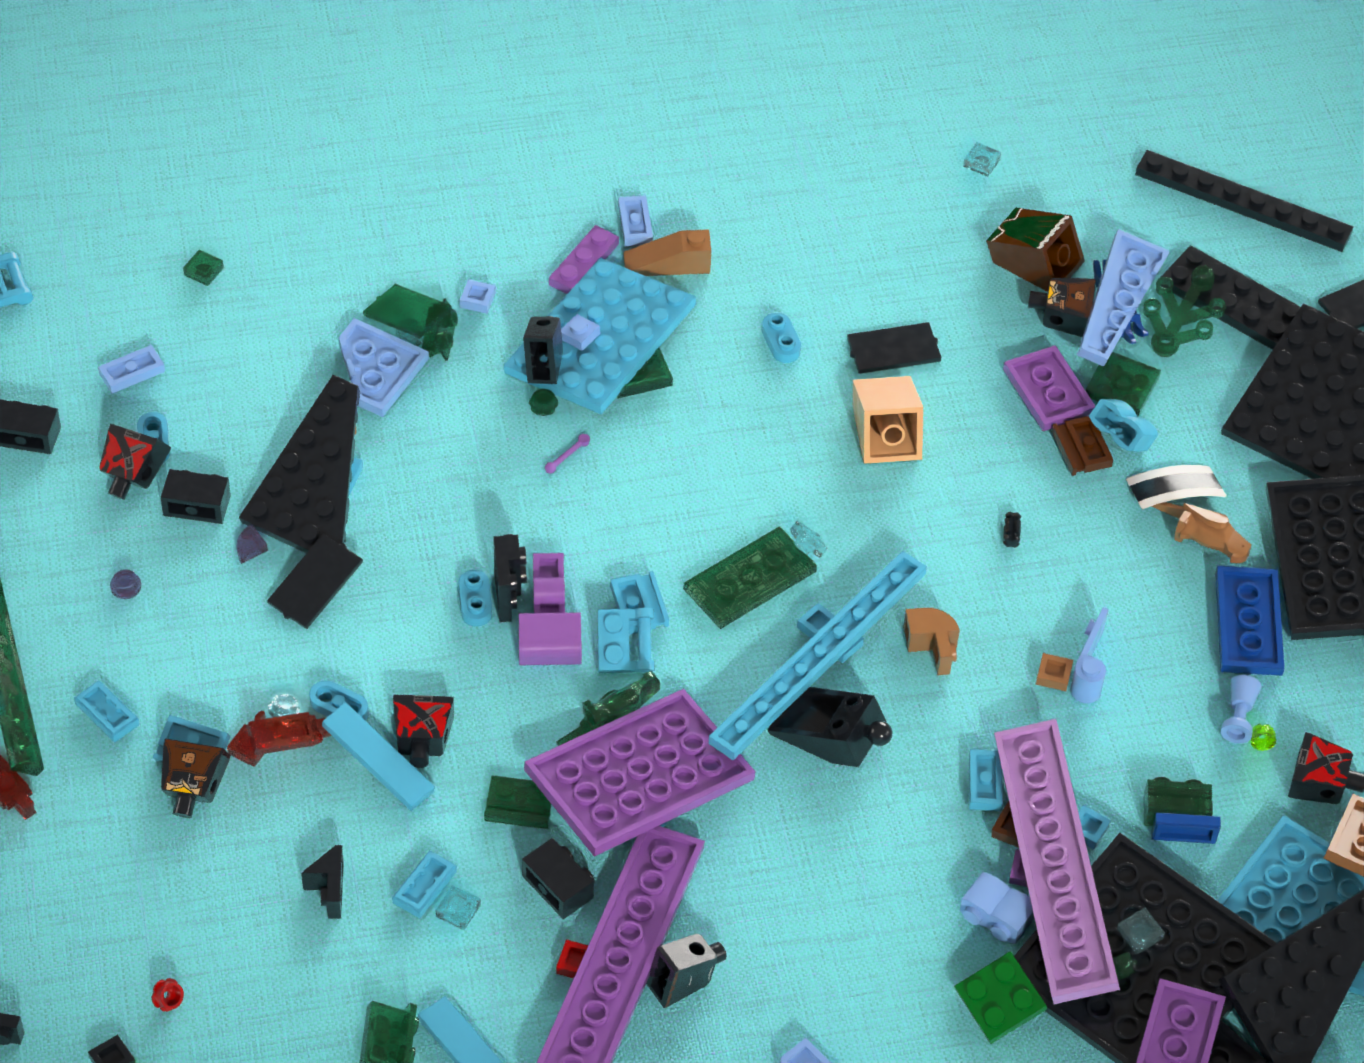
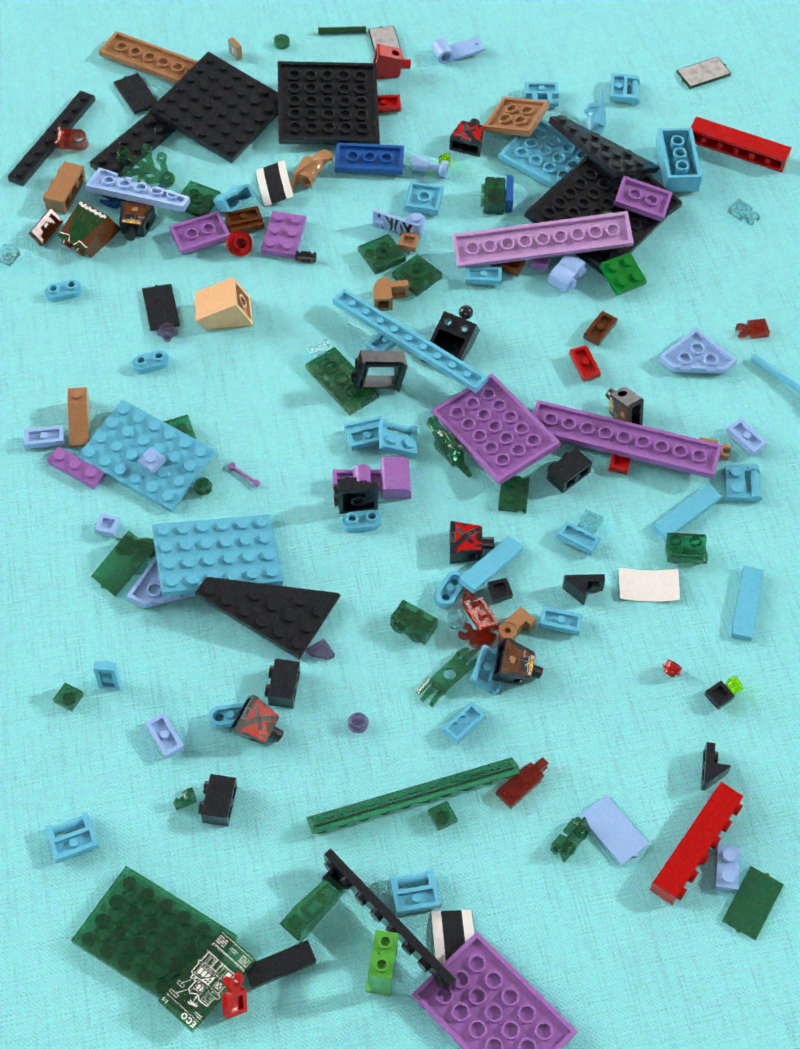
camera: 90 degrees left, 5 degrees up
(34, 393) = (187, 799): none -> clear green tile
(206, 709) = (442, 684): none -> clear green piece
(221, 296) = (107, 675): none -> medium azure plate
(266, 783) = (515, 624): none -> medium nougat leg
(269, 847) = (560, 620): none -> medium azure plate
(281, 652) = (413, 622): none -> clear green brick
(315, 581) = (354, 608): black piece -> none
(332, 768) = (499, 590): none -> black plate
(332, 982) = (649, 585): none -> white sticker
(416, 416) = (218, 549): none -> medium azure plate
(543, 338) = (172, 473): black torso -> none
(747, 605) = (379, 370): none -> black window
(790, 922) = (584, 363): none -> red plate
(839, 353) = (167, 327): none -> clear purple plate
(872, 953) = (600, 328): none -> reddish brown plate
(916, 224) = (63, 290): none -> medium azure plate
(979, 682) = (418, 273): none -> clear green plate
(1023, 632) = (381, 254): none -> clear green plate
(1025, 435) = (239, 243): none -> red plate
(1040, 197) = (45, 227): none -> plate
(1060, 501) = (283, 234): none -> medium lavender plate
(1138, 216) = (64, 187): none -> medium nougat brick
(1140, 931) = (586, 206): clear light blue plate -> none
(1161, 698) = (423, 198): none -> medium azure plate
(1234, 219) = (68, 138): none -> clear red piece

